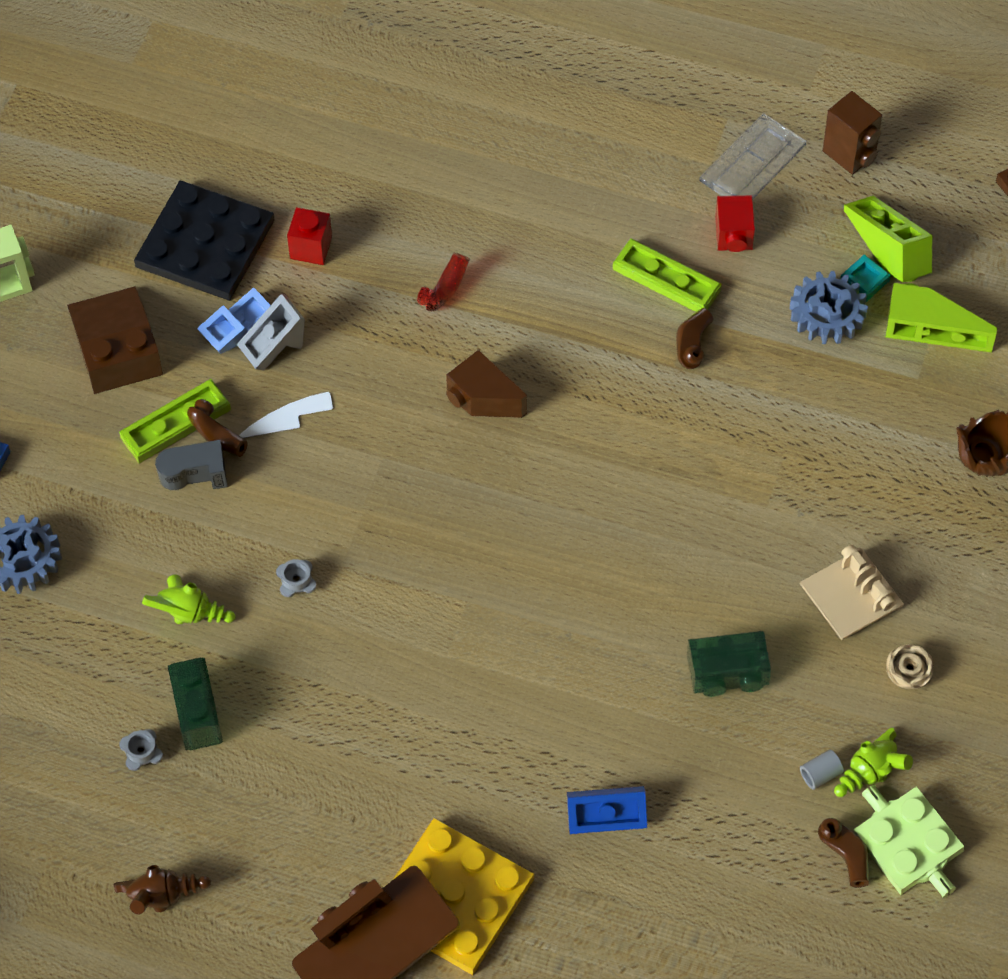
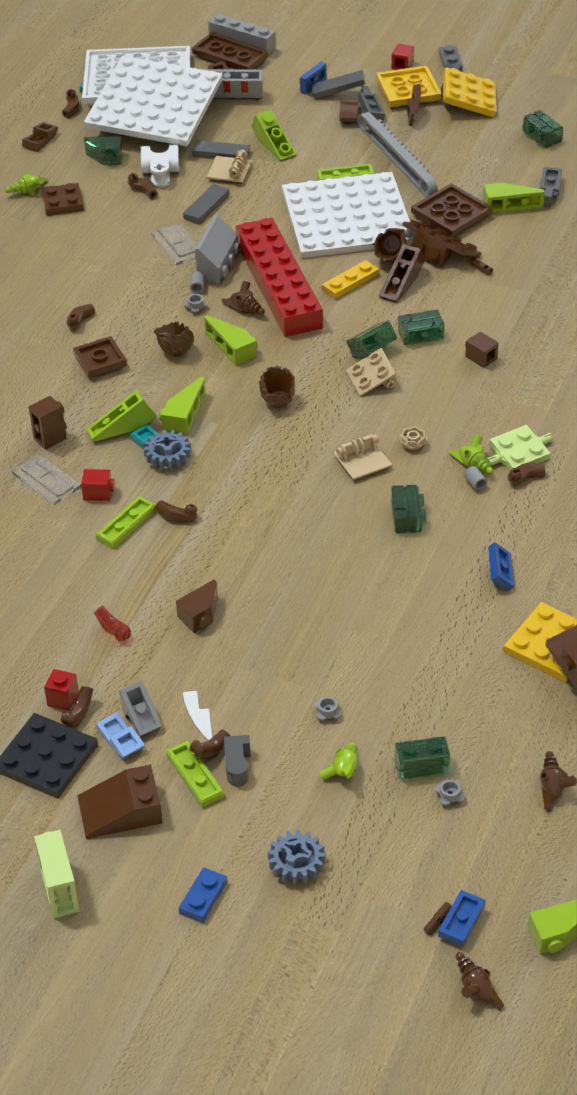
camera: 85 degrees left, 15 degrees down
(282, 266) = (80, 708): none -> reddish brown arm

